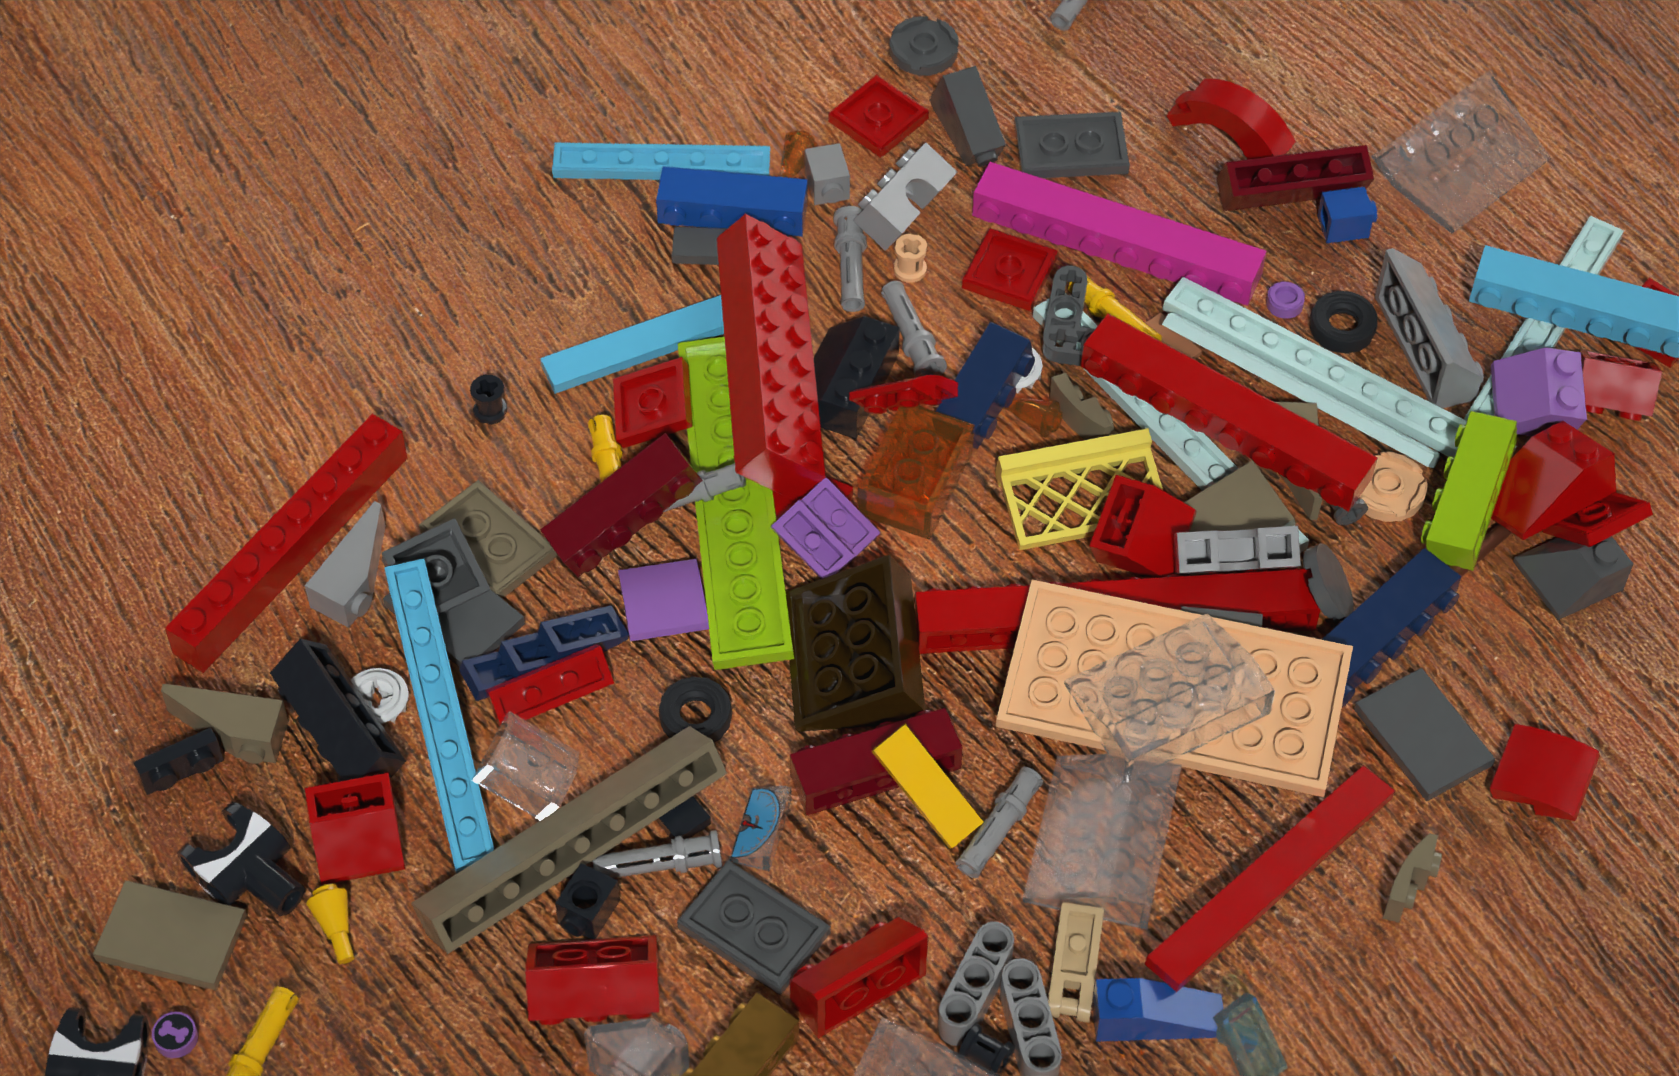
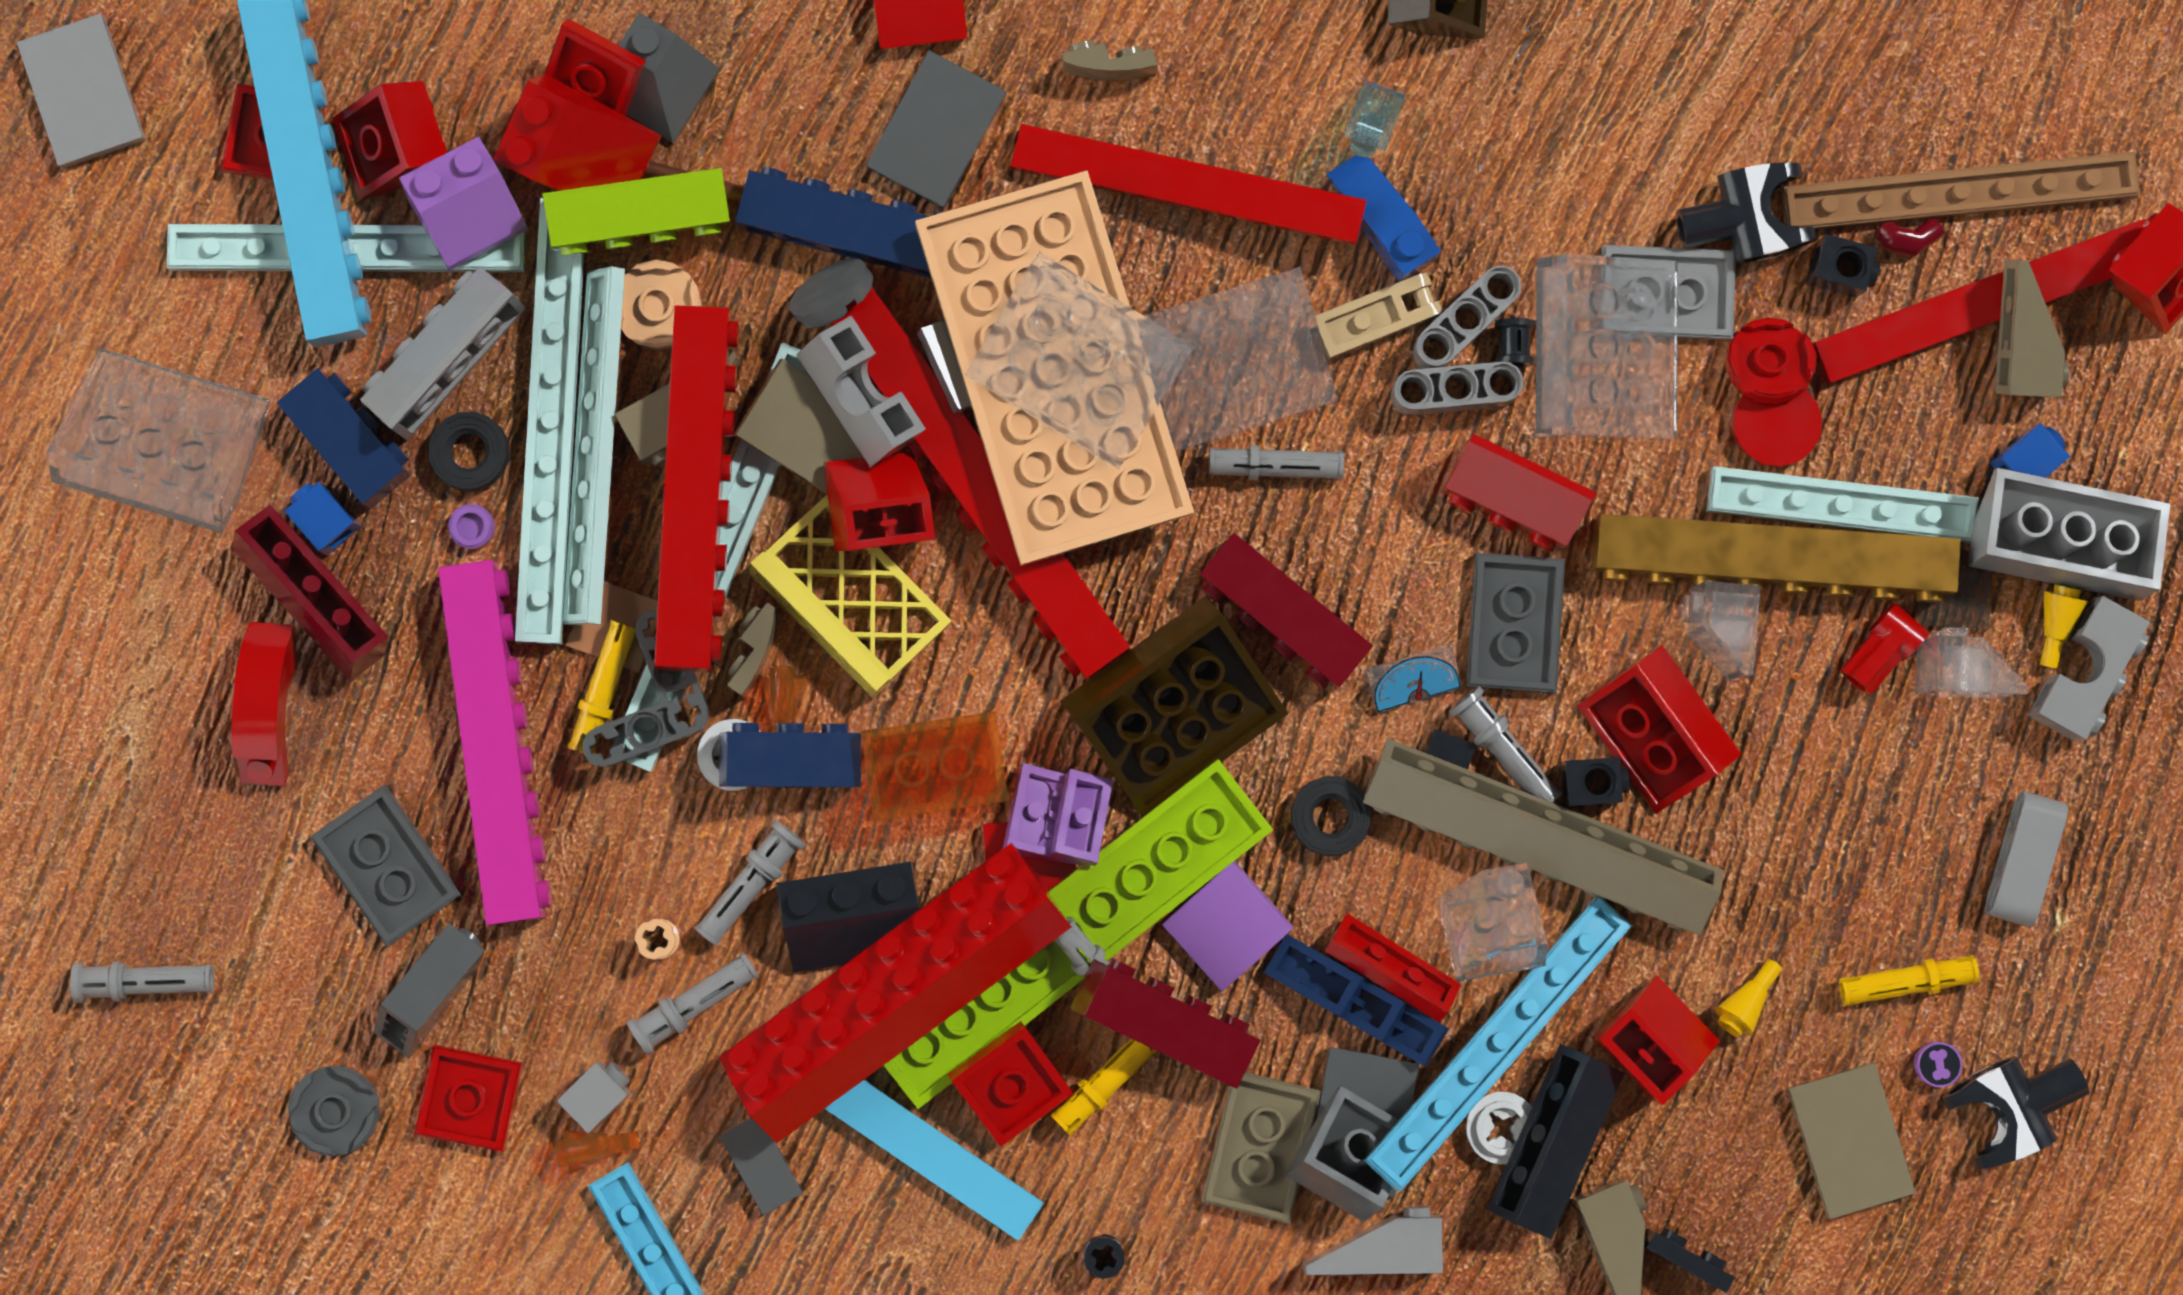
camera: 125 degrees left, 30 degrees up
(246, 864) = (1747, 1117): black connector -> none
(722, 198) = (694, 1174): blue brick -> none
(889, 211) = (621, 995): light grey arch -> none
(905, 393) = (868, 823): red slope -> none
(927, 786) = (1292, 542): yellow tile -> none
(1009, 269) = (601, 832): red tile -> none
(1426, 241) = (346, 437): none -> dark blue brick

